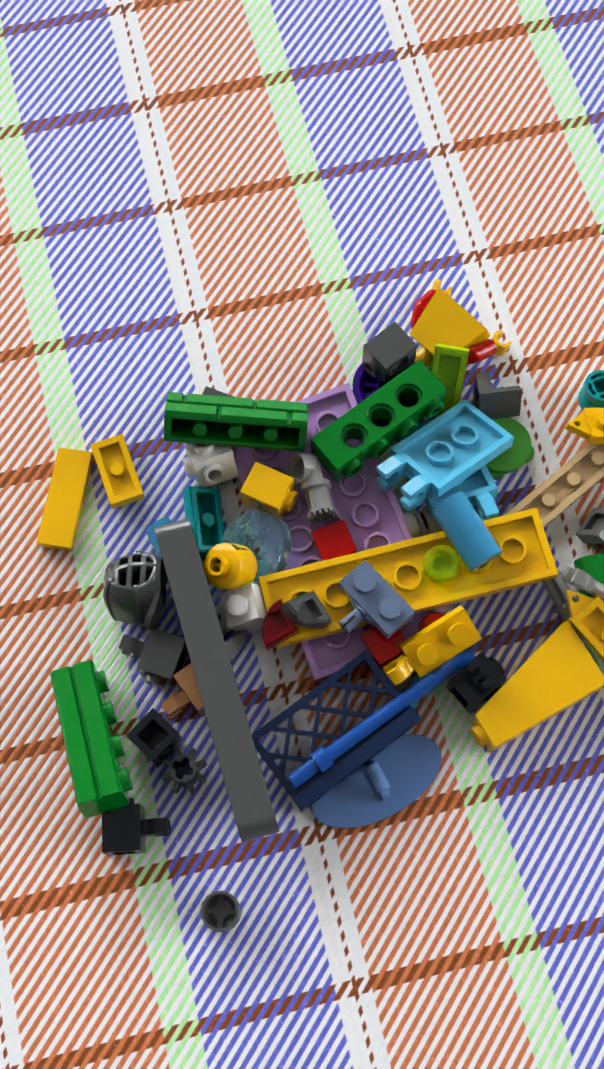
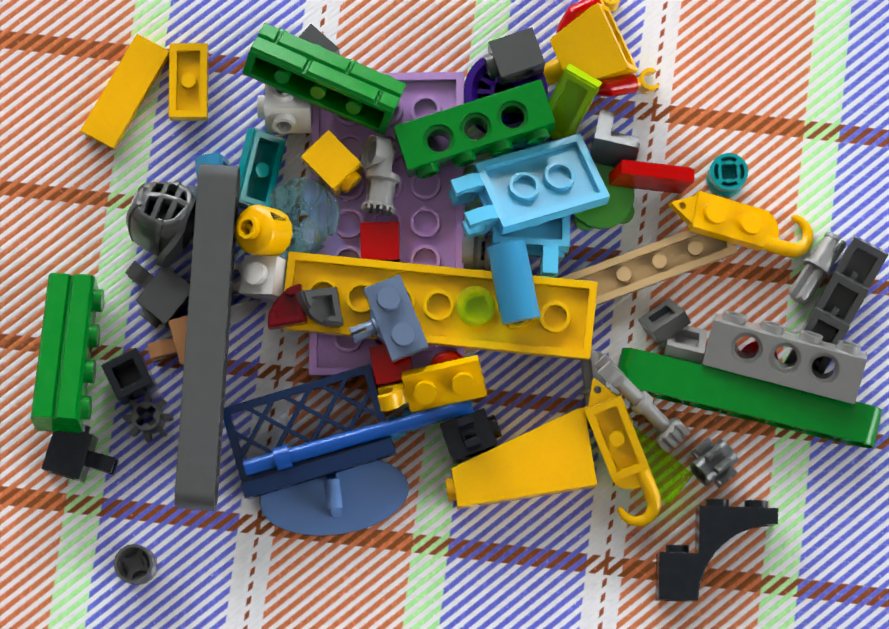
camera: 20 degrees right, 10 degrees up
(538, 412) = (651, 176): none -> red tile

